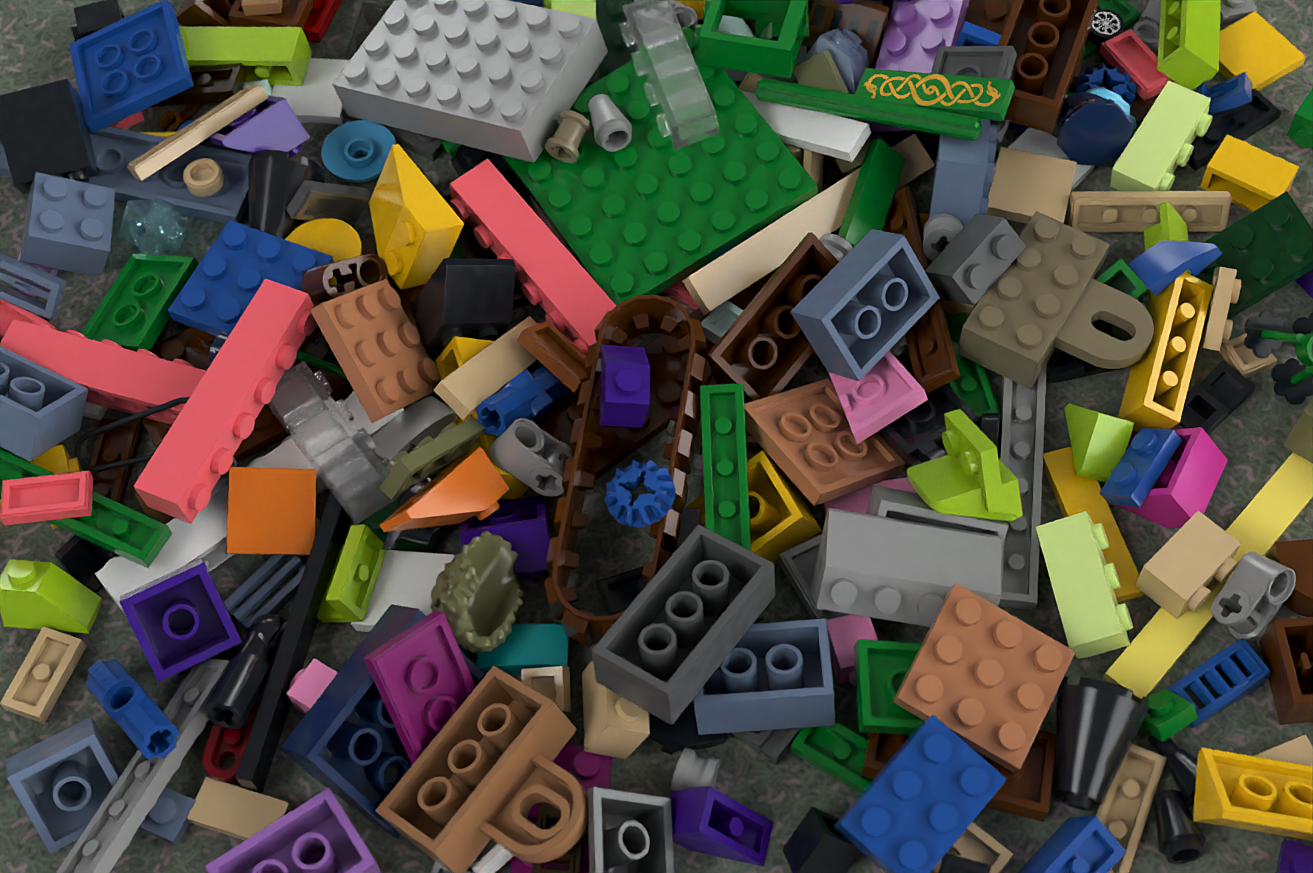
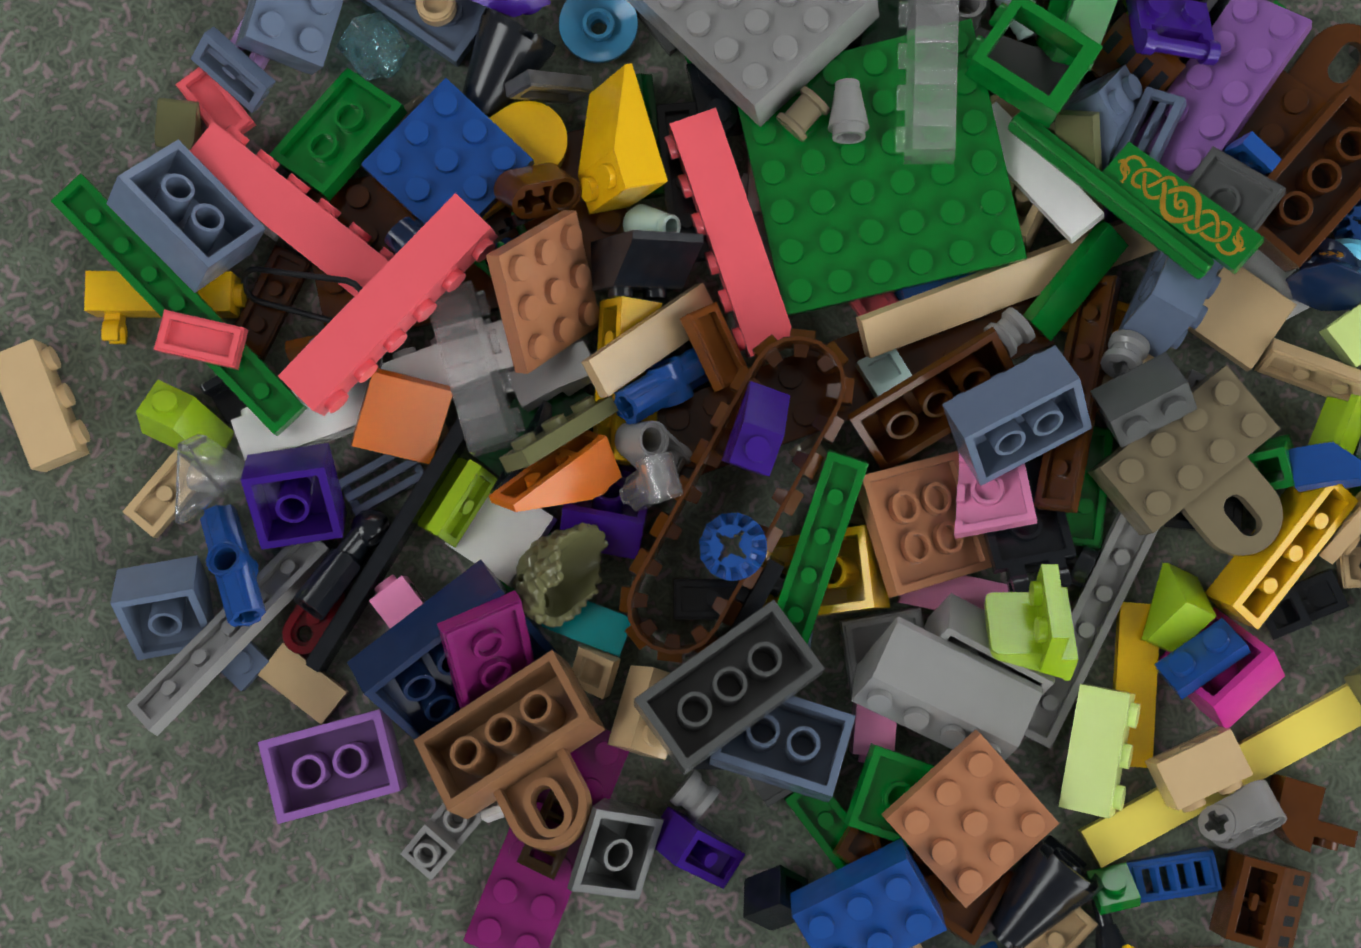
camera: 15 degrees right, 25 degrees up
(82, 635) = (203, 476): none -> clear slope
(542, 467) = (652, 482): none -> clear piece
(883, 38) = (1164, 99): none -> sand blue tile

